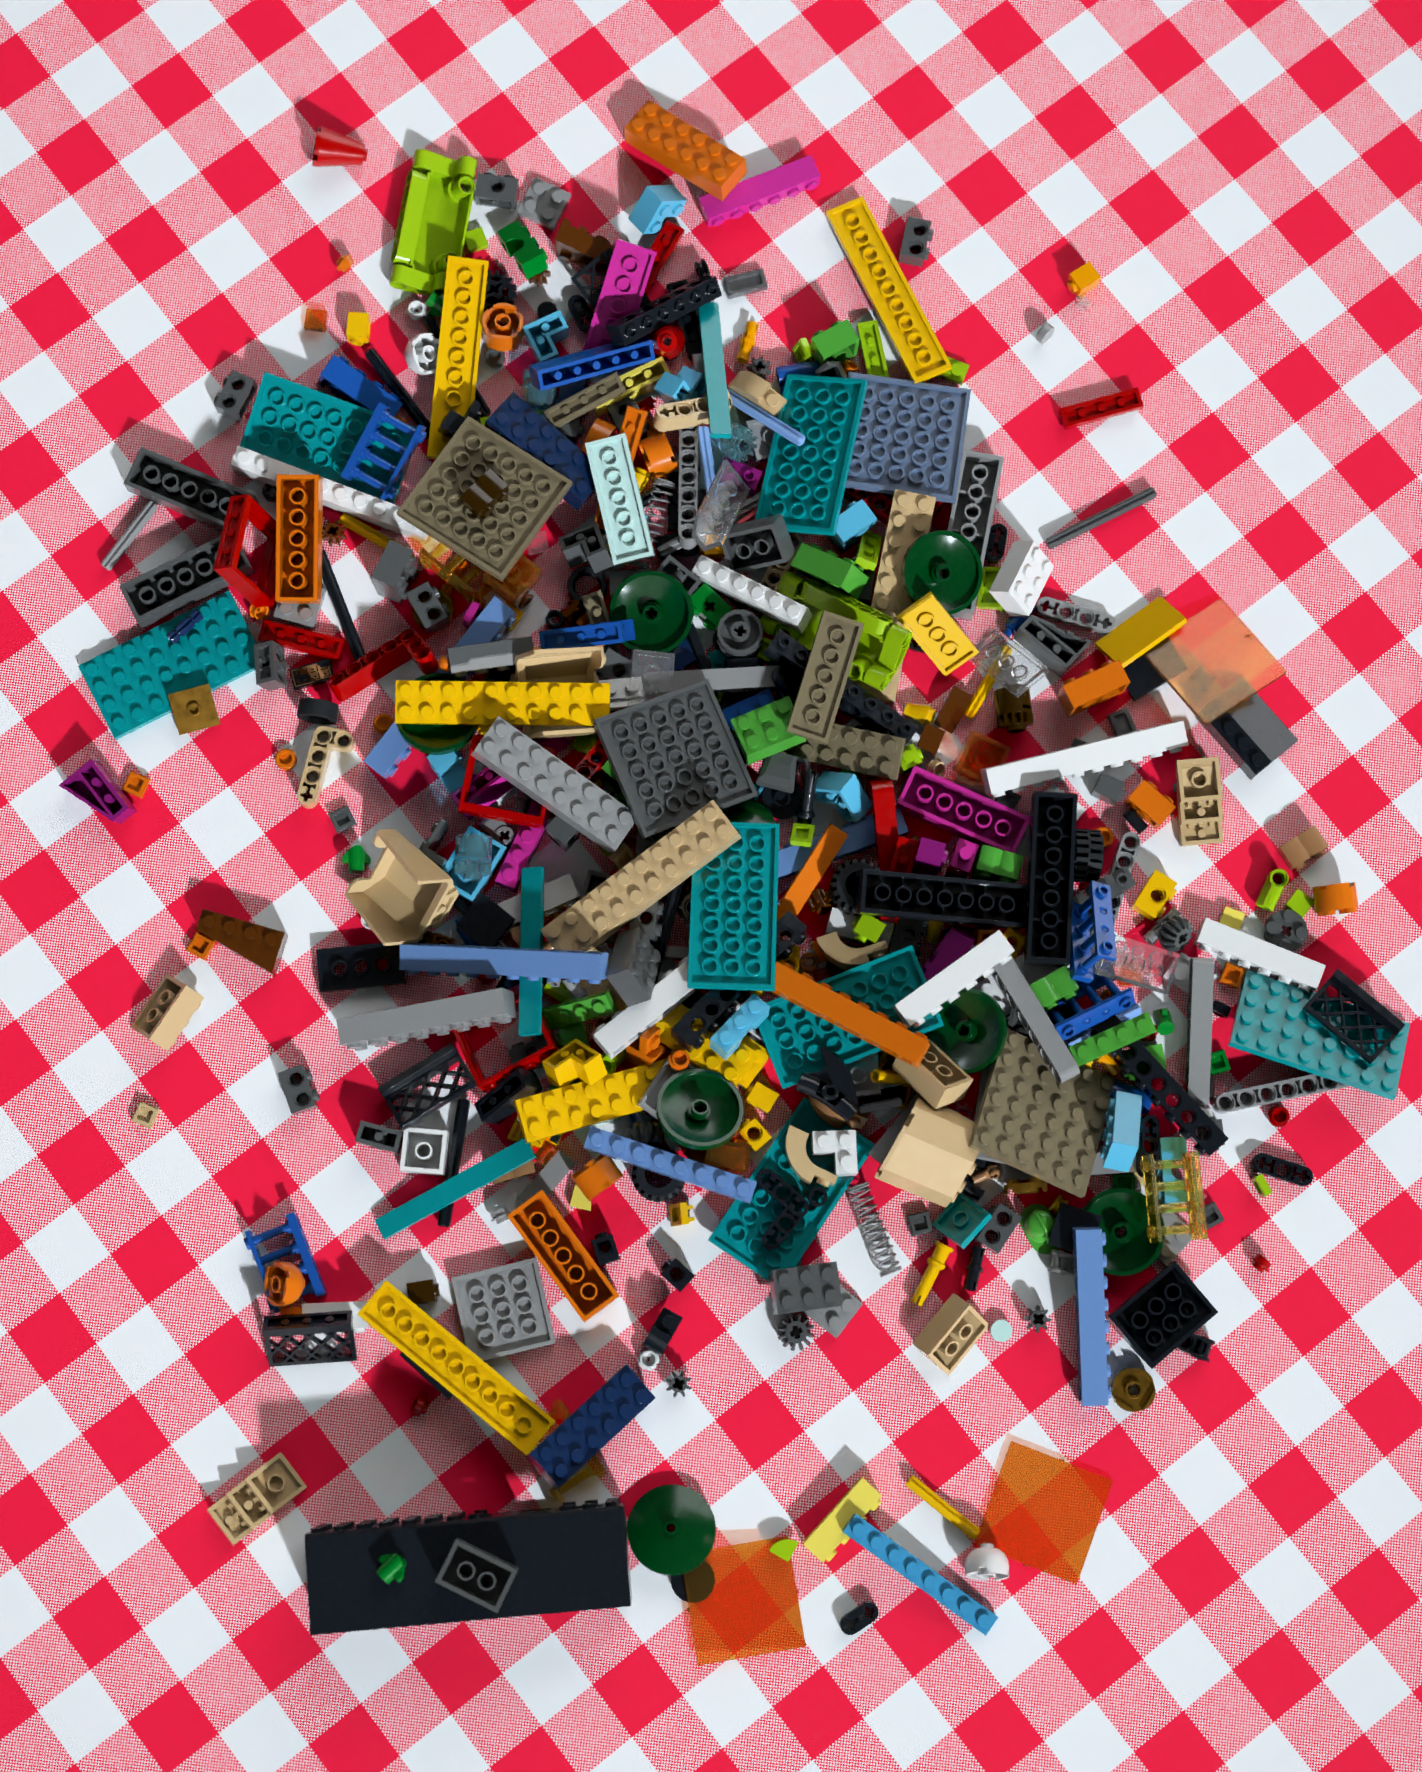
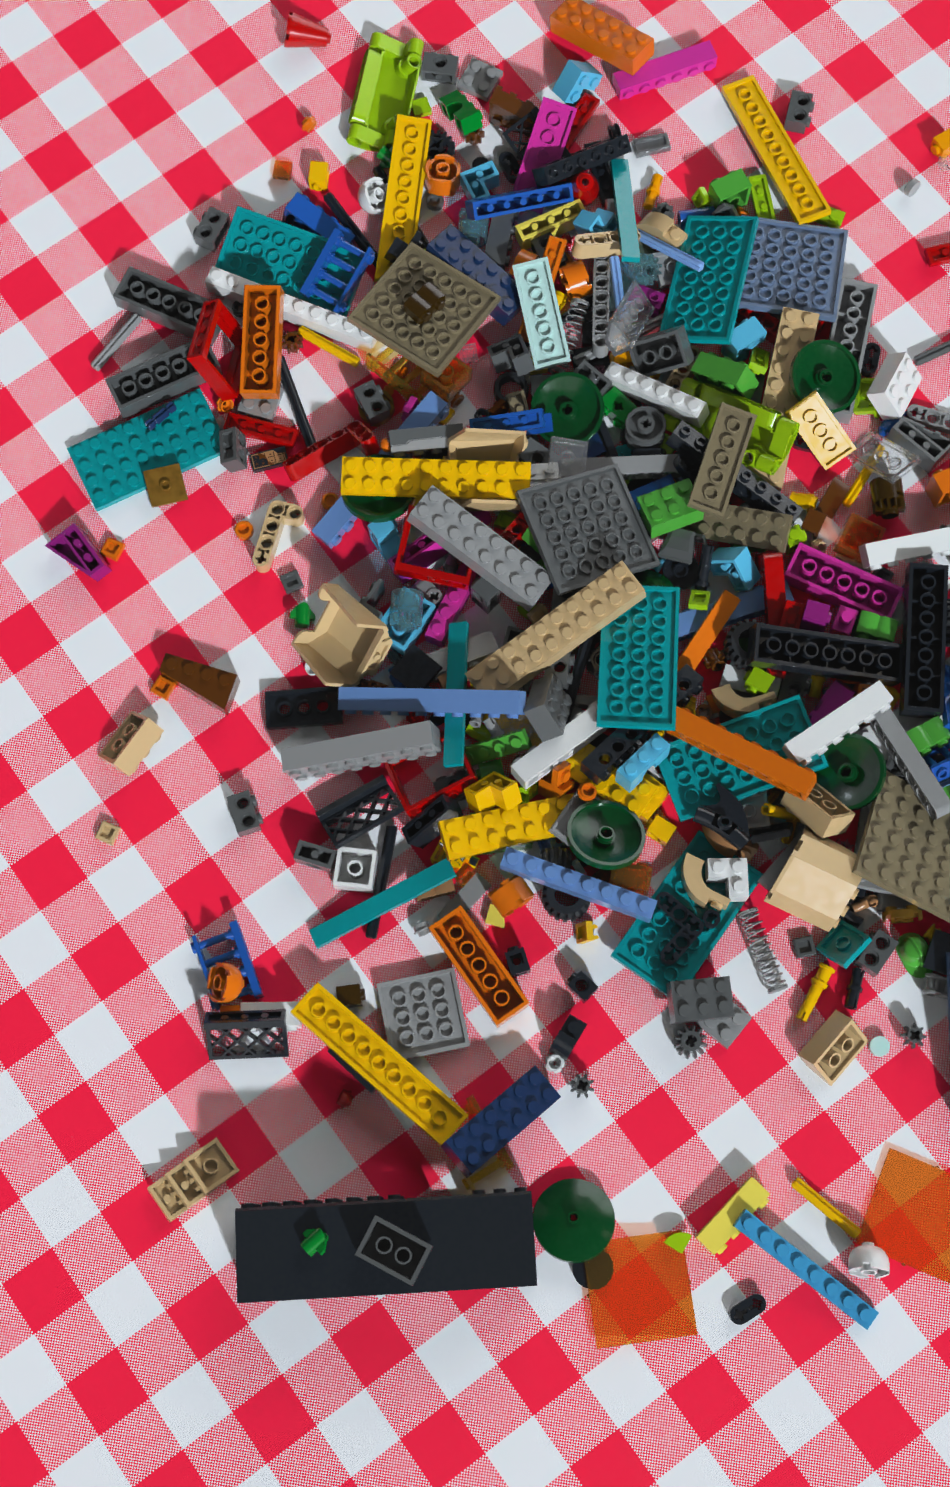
camera: 10 degrees right, 5 degrees down
(317, 711) = (273, 487): black tyre -> none
(395, 572) = (344, 371): dark grey brick -> none
(414, 305) = (369, 158): white plate -> none
(585, 400) = (513, 233): dark tan tile -> none
(759, 1142) = (662, 865): yellow brick -> none

